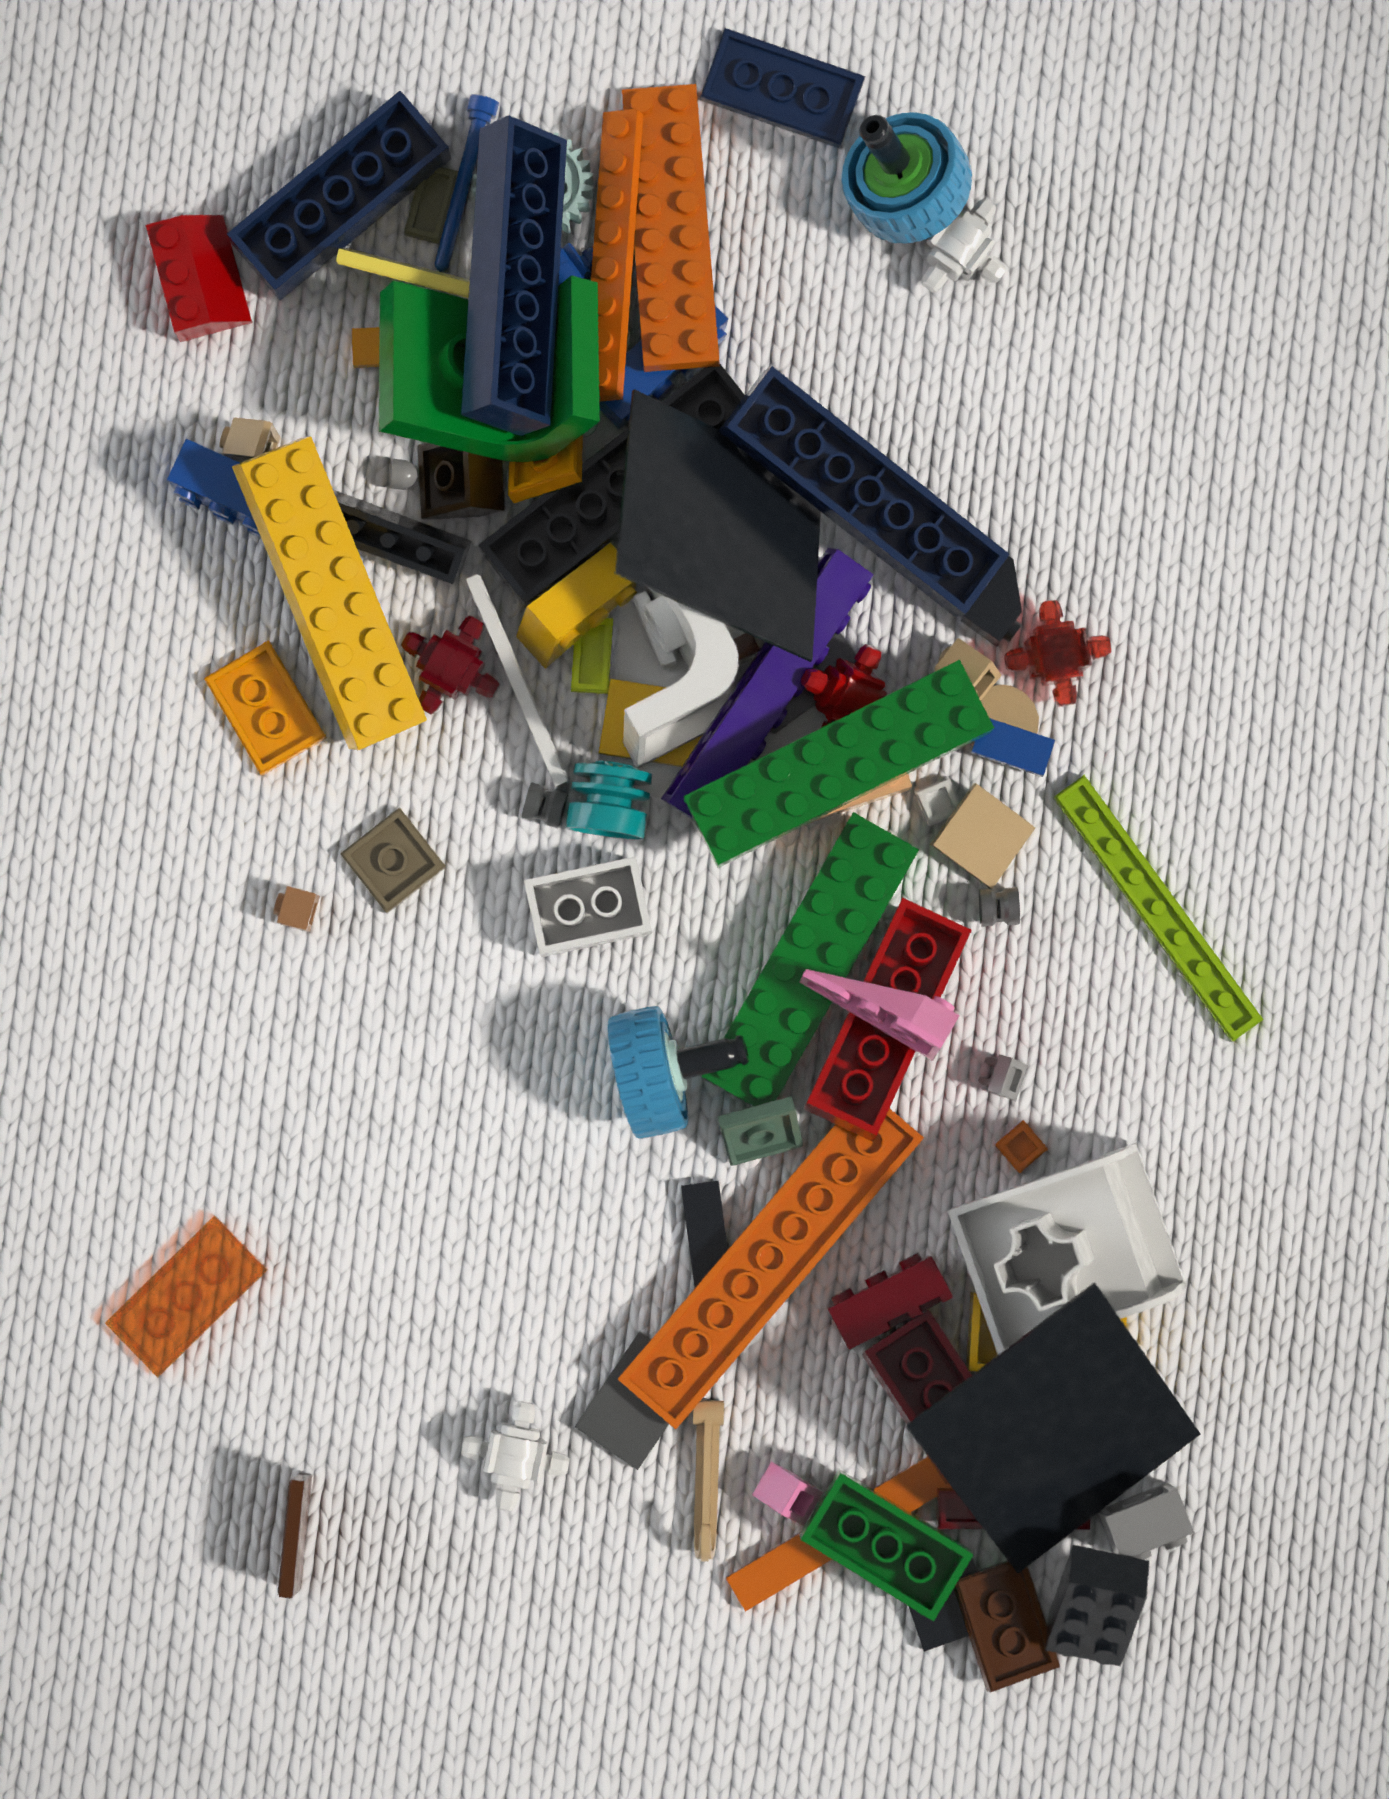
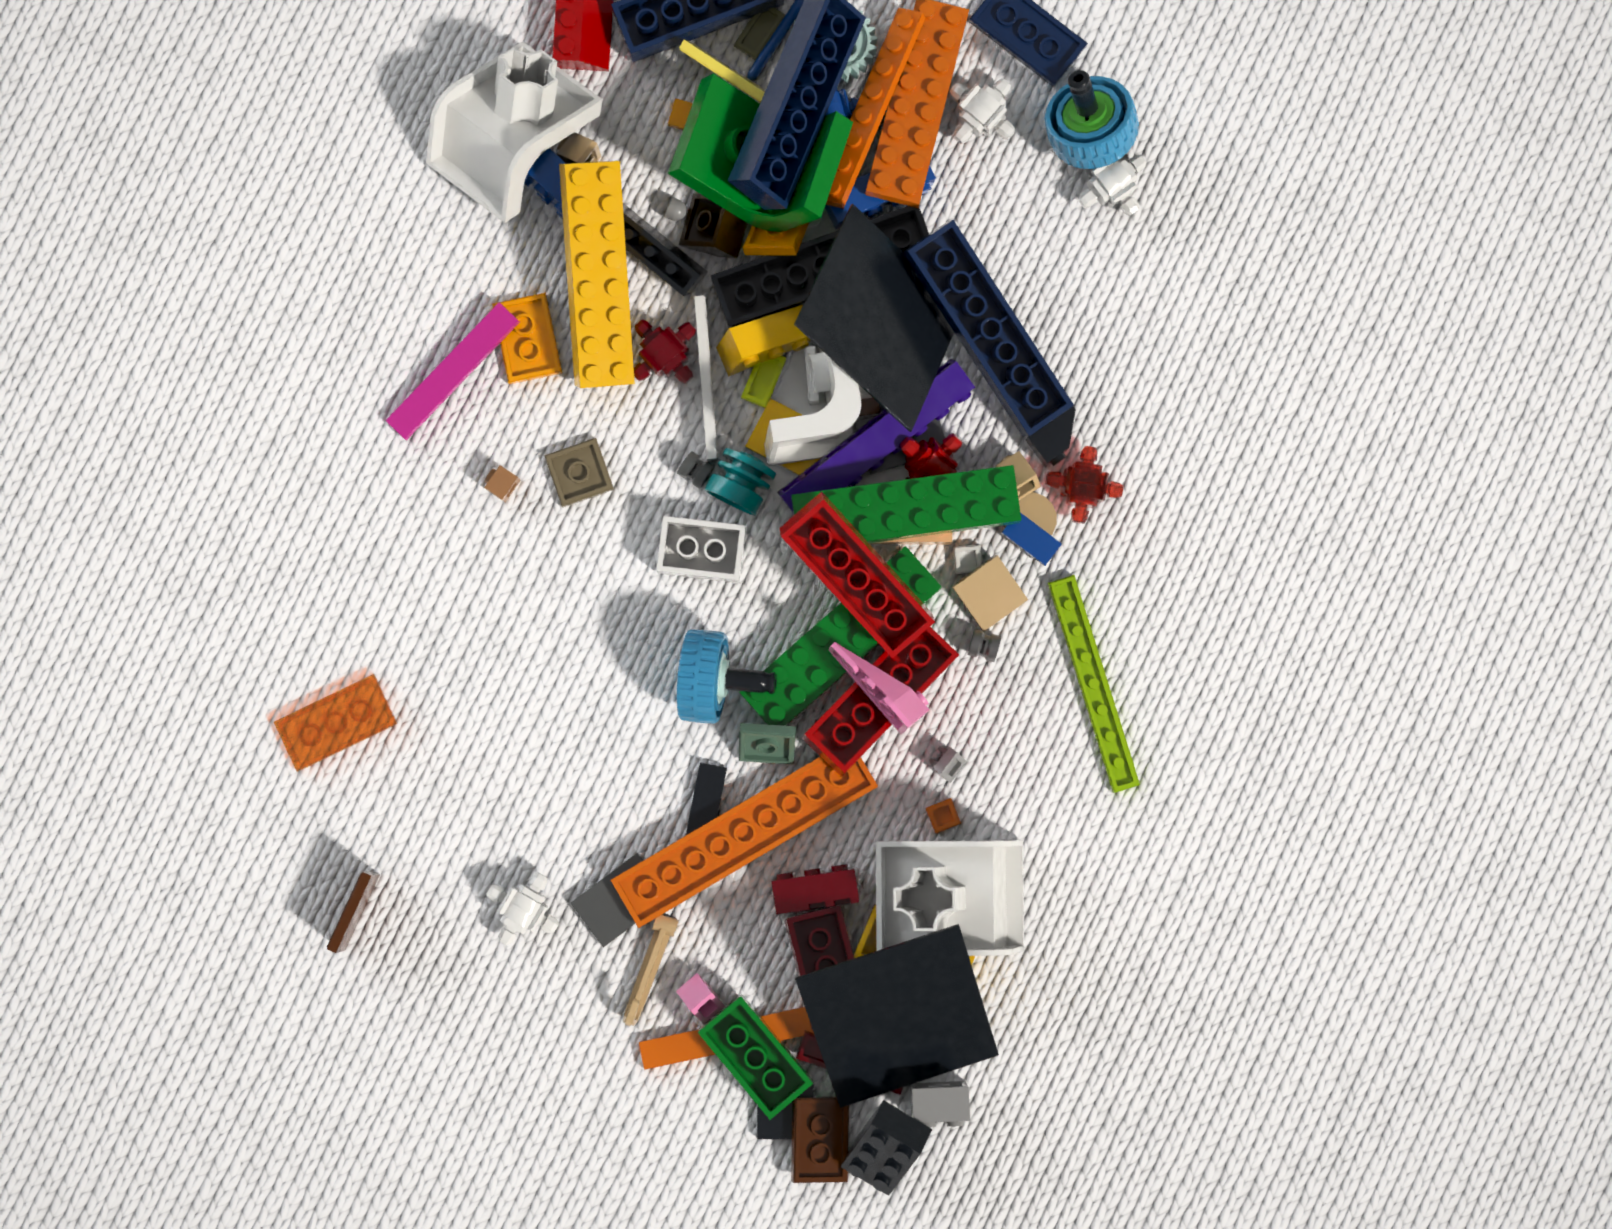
camera: 15 degrees right, 0 degrees up
(135, 436) = (501, 120): none -> white piece
(182, 784) = (452, 371): none -> dark pink tile
(758, 211) = (982, 111): none -> white piece
(805, 872) = (856, 574): none -> red brick

